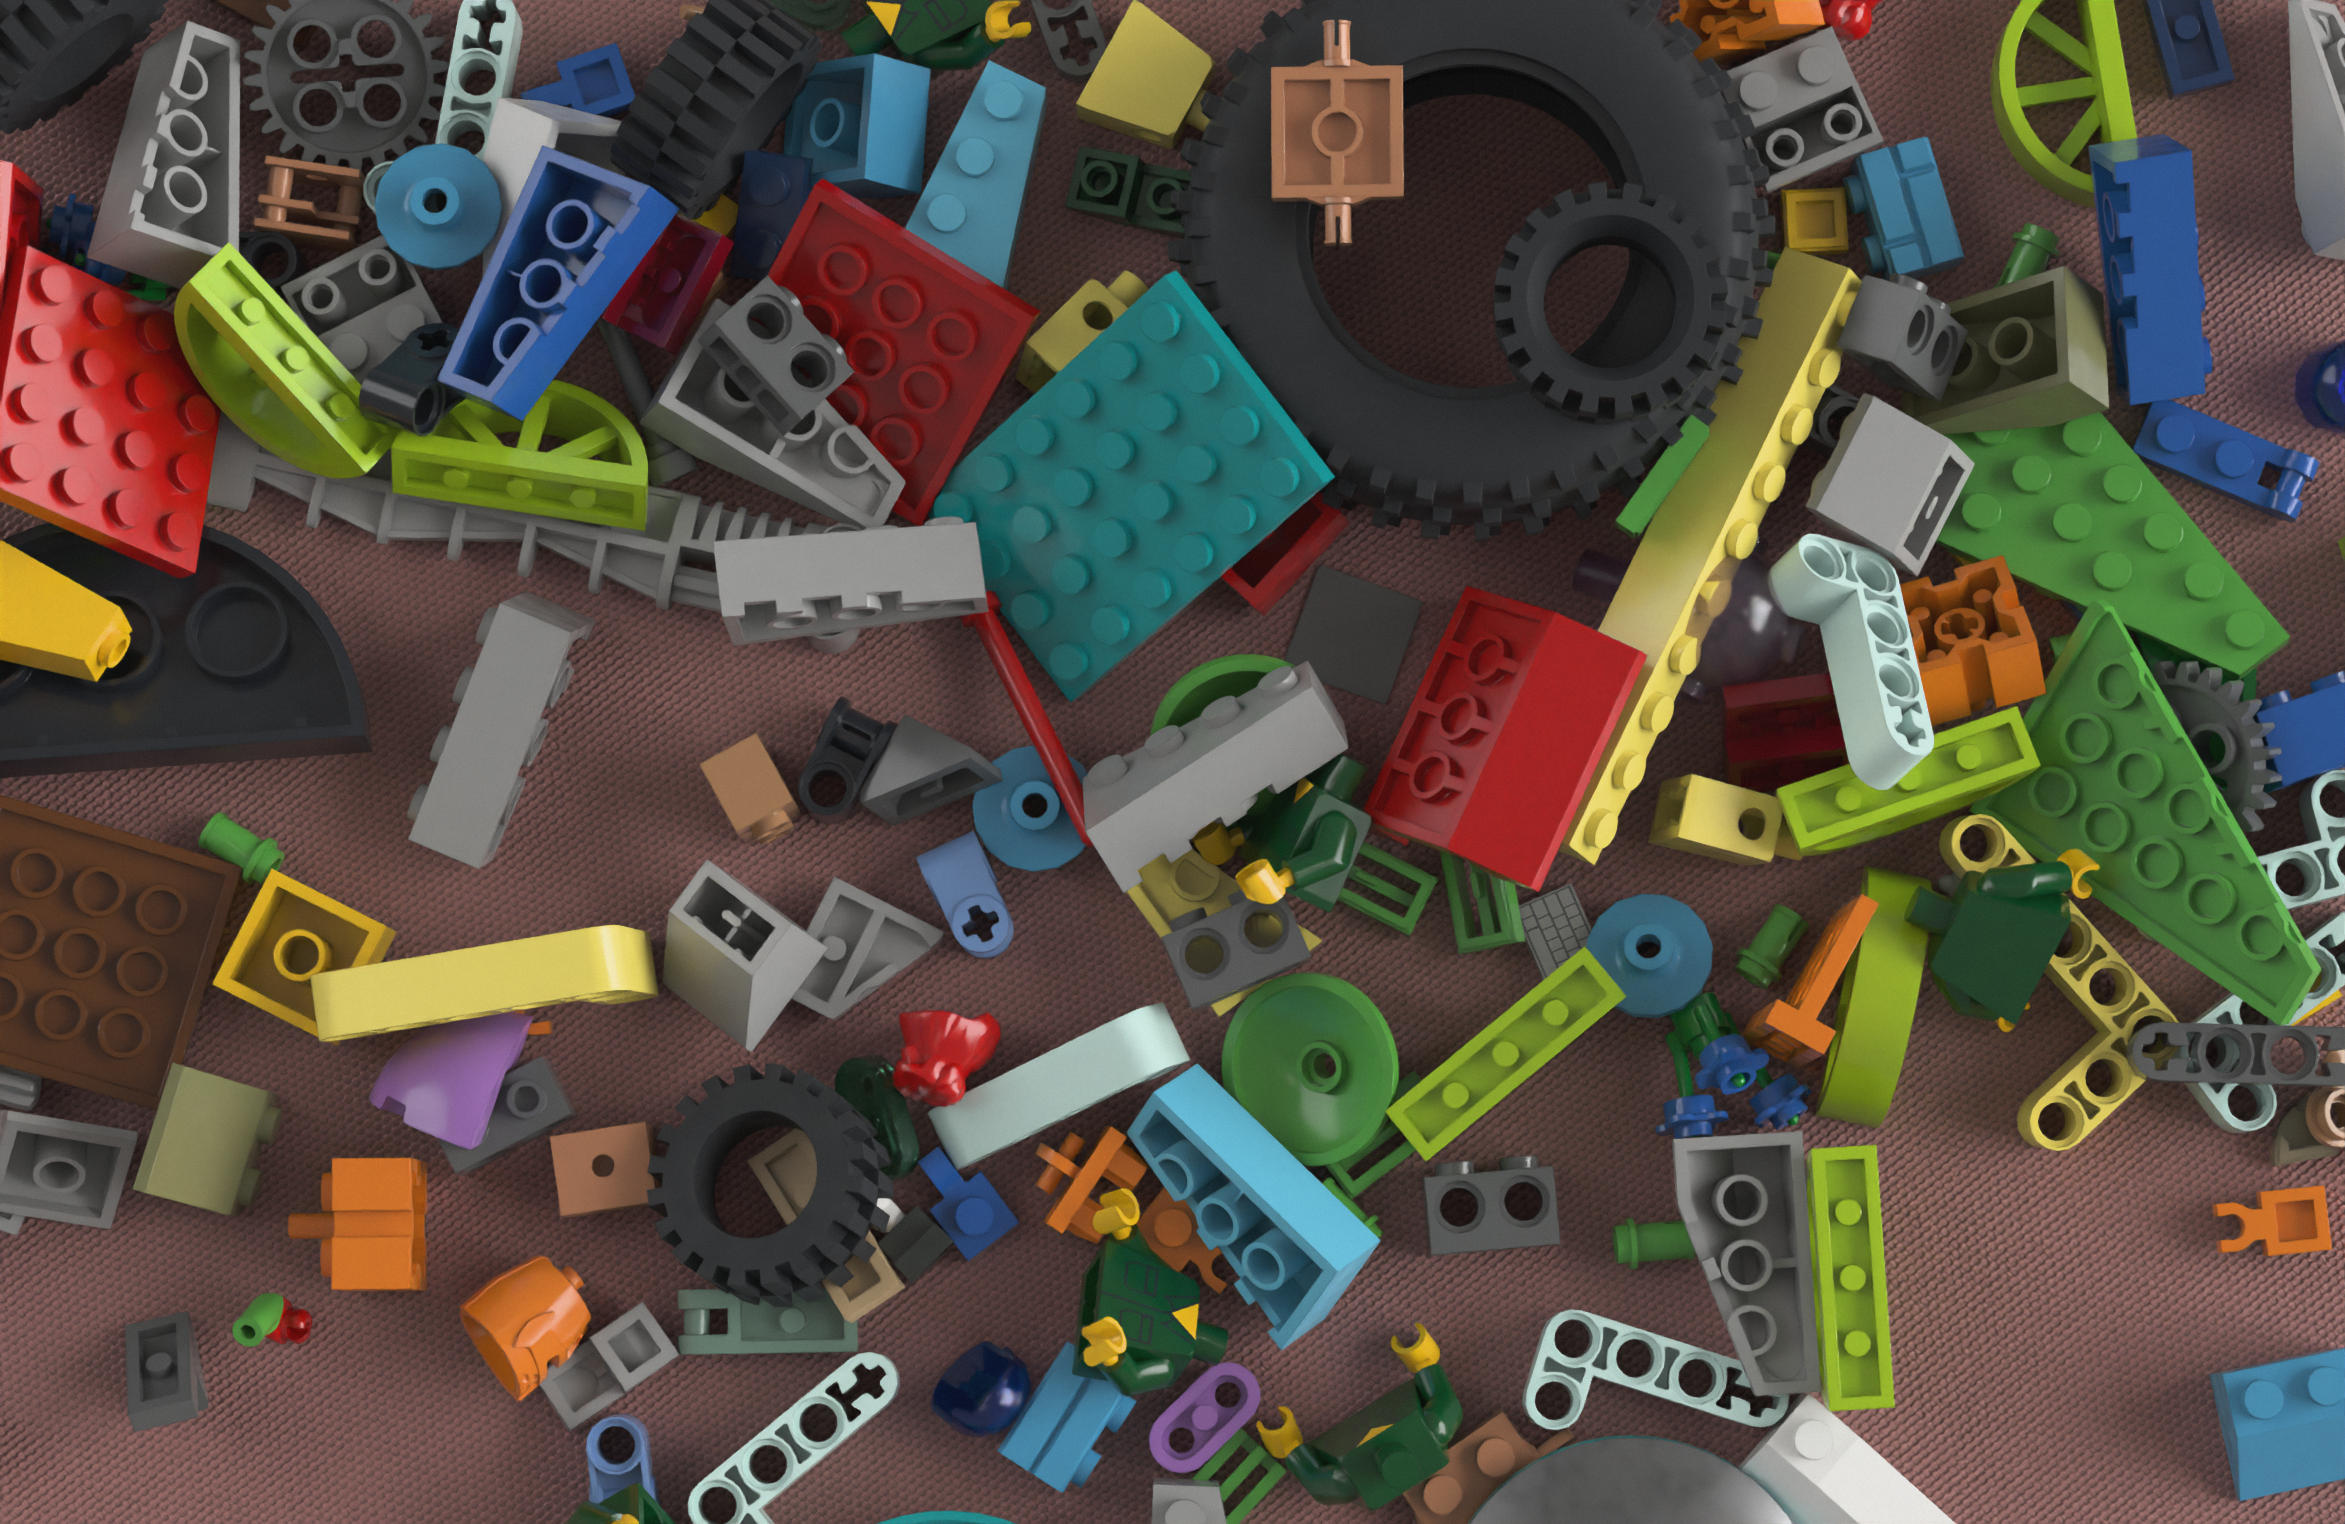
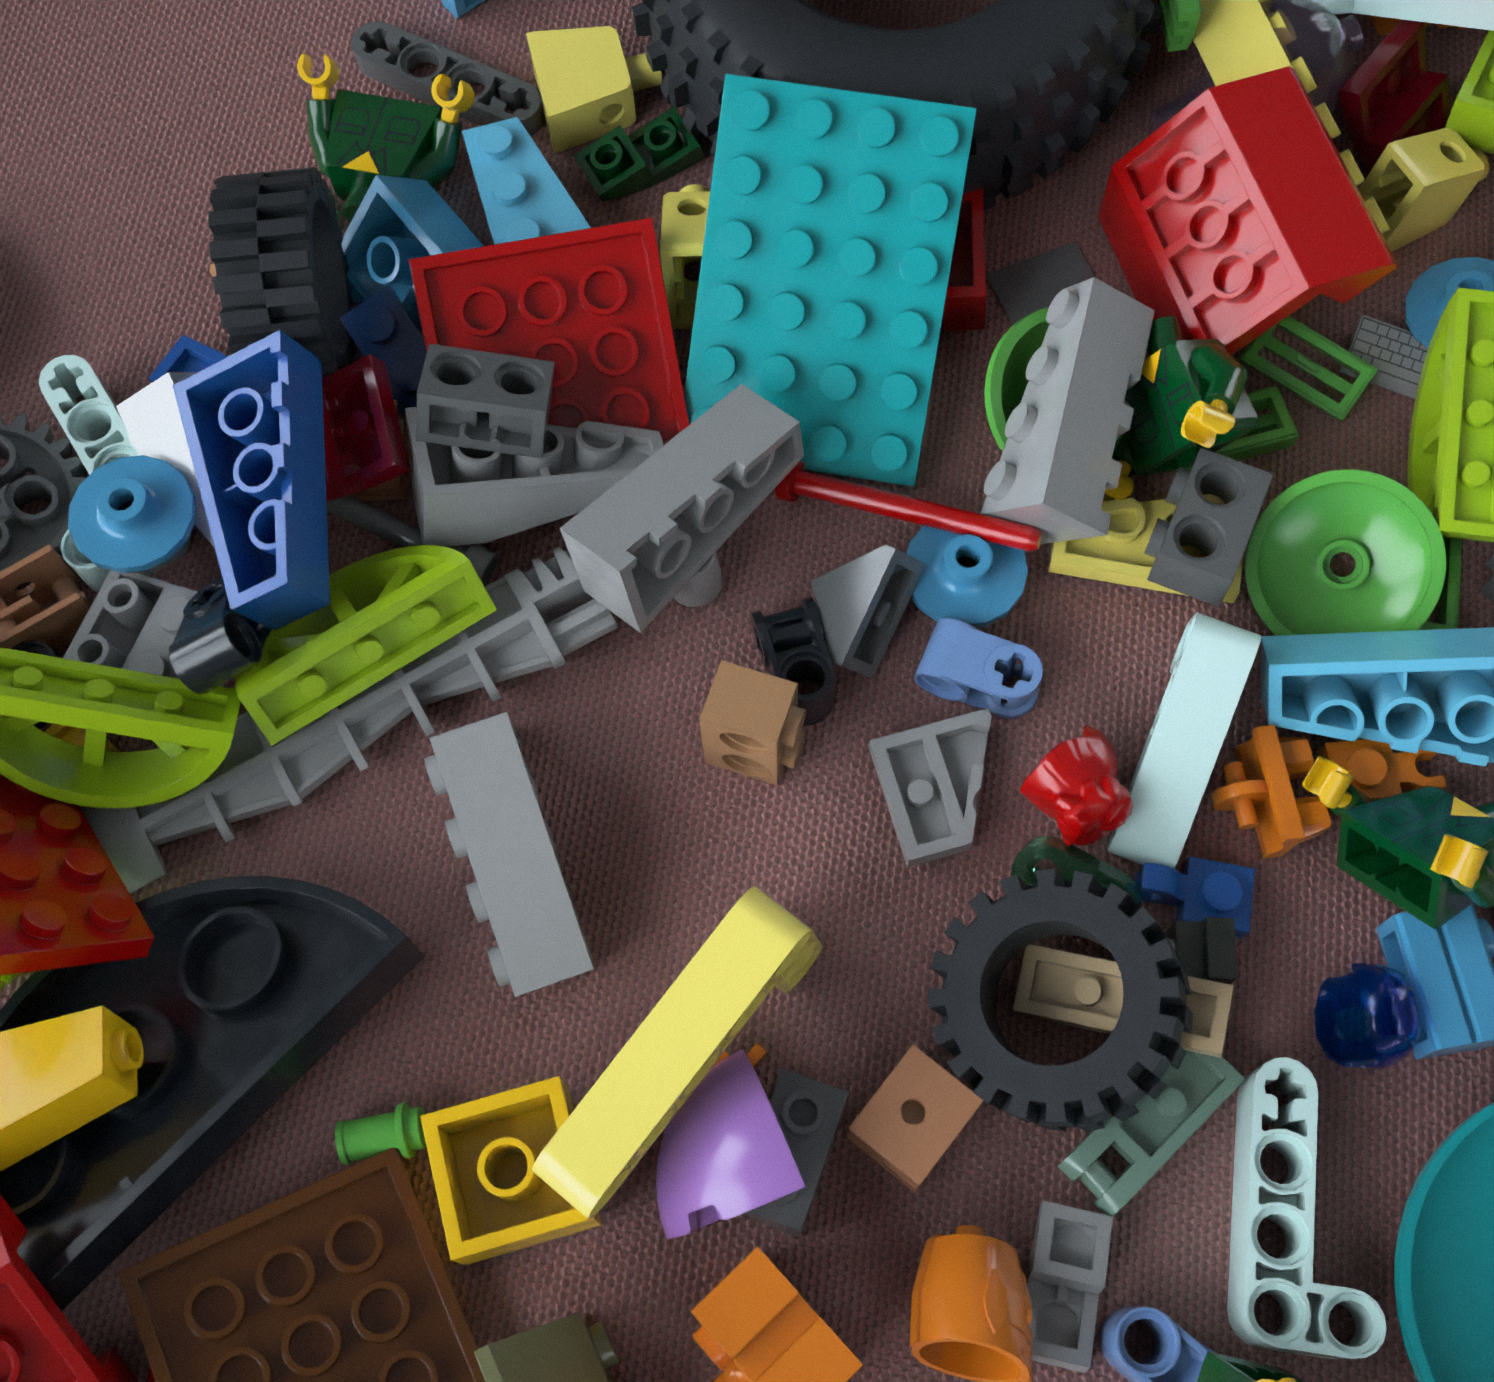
camera: 40 degrees left, 15 degrees down
(735, 954) = (855, 854): light grey slope -> none

